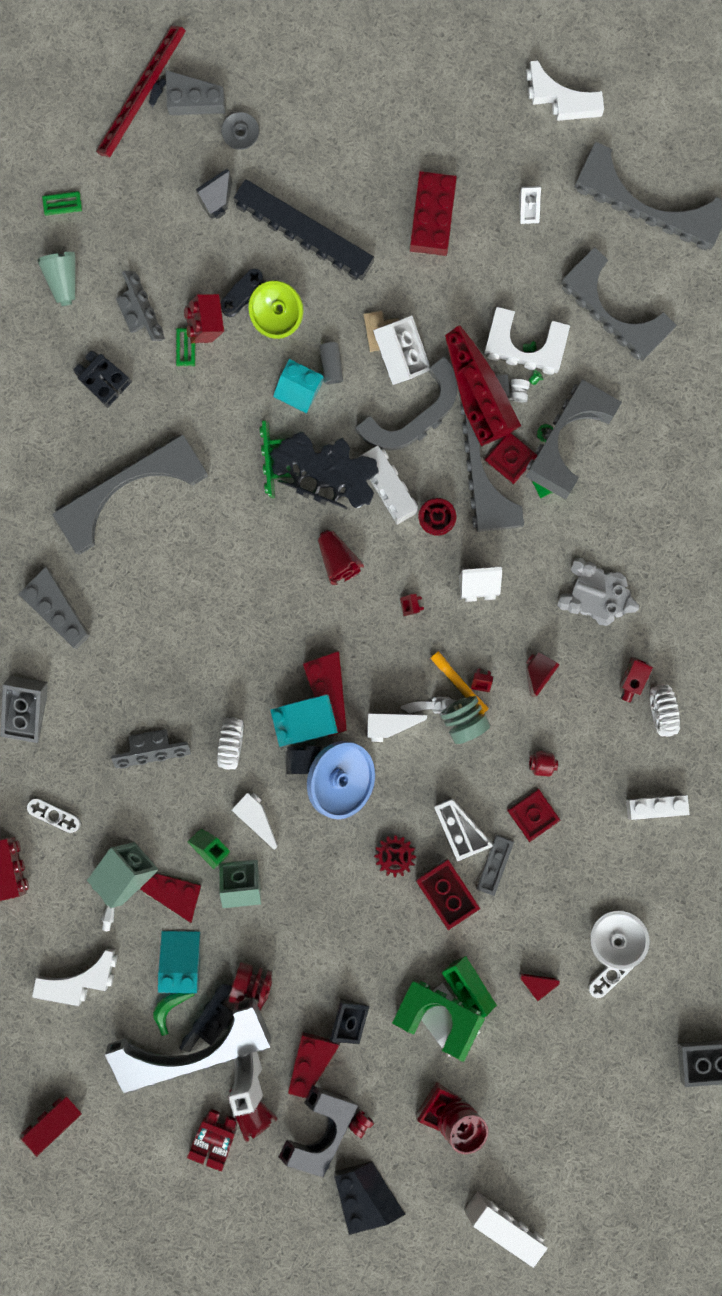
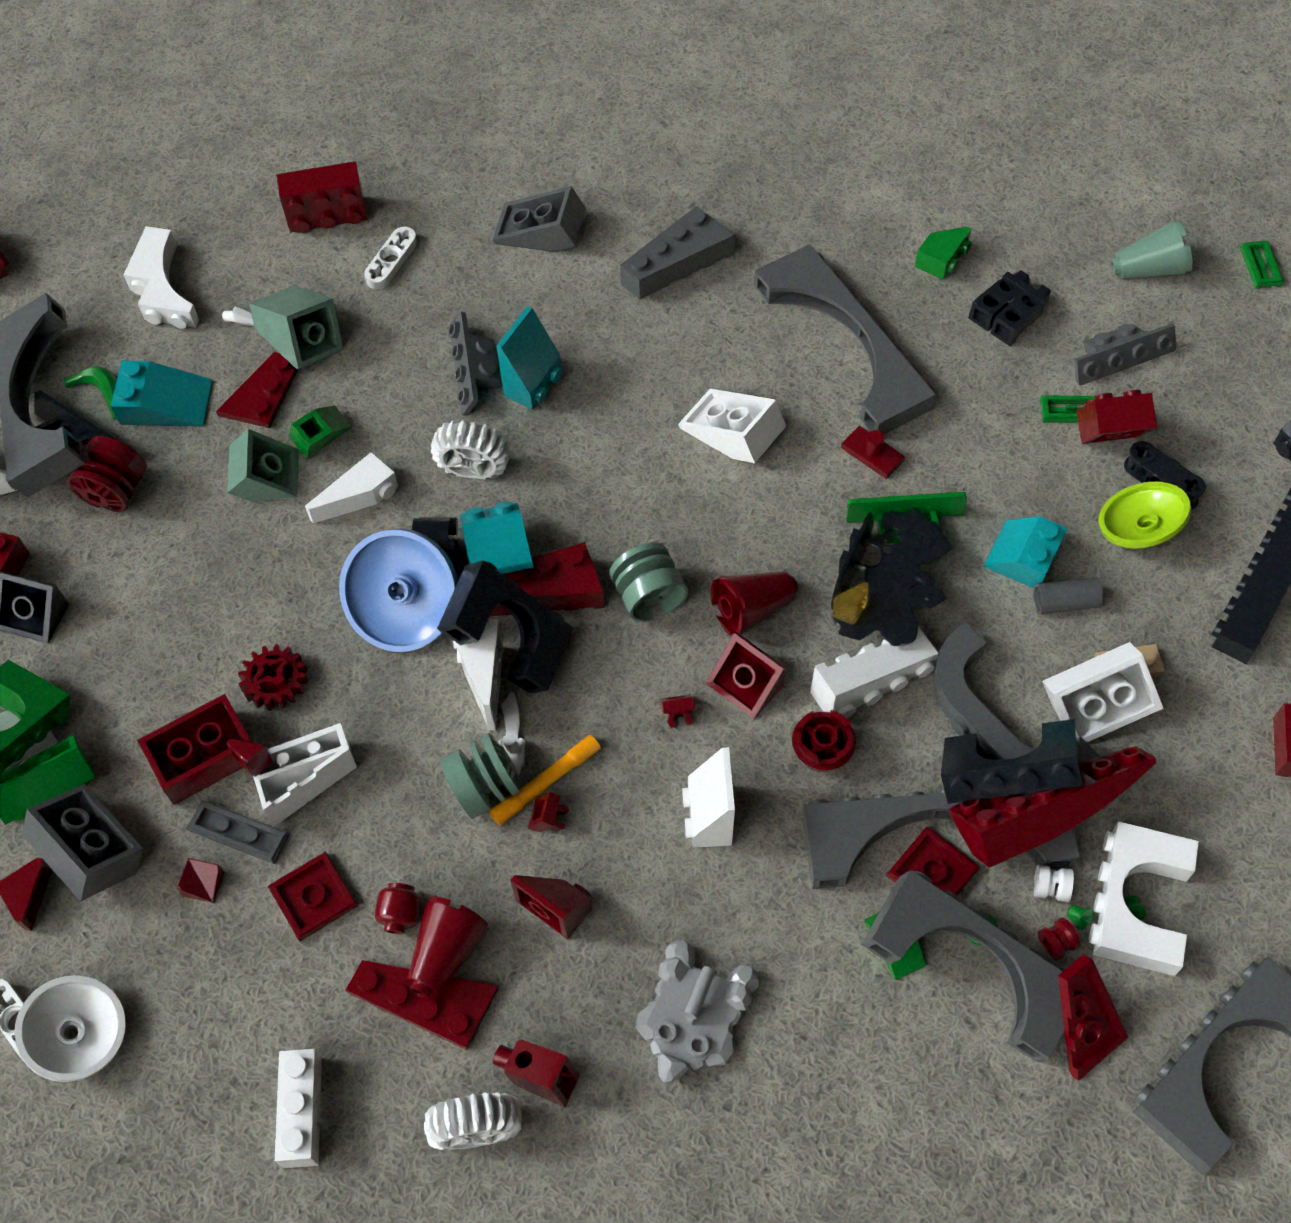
camera: 95 degrees right, 25 degrees down
(53, 422) = (942, 251): none -> green slope
(160, 706) = (528, 360): none -> teal slope
(201, 570) = (735, 423): none -> white slope
(221, 478) = (873, 451): none -> dark red tile
(329, 623) = (648, 577): none -> sand green wheel
(351, 496) = (851, 603): none -> clear yellow slope
(358, 723) = (541, 630): none -> black arch
(392, 563) = (747, 676): none -> dark red slope
(460, 858) = (250, 756): none -> dark red slope
(466, 385) = (1048, 767): none -> black arch
(511, 953) = (82, 842): none -> dark grey brick
(527, 881) = (200, 880): none -> dark red slope
(551, 390) = (1059, 938): none -> dark red wheel
(568, 734) = (443, 945): none -> dark red cone
(593, 743) = (449, 1015): none -> dark red wing
(600, 379) = (1088, 1017): none -> dark red wing

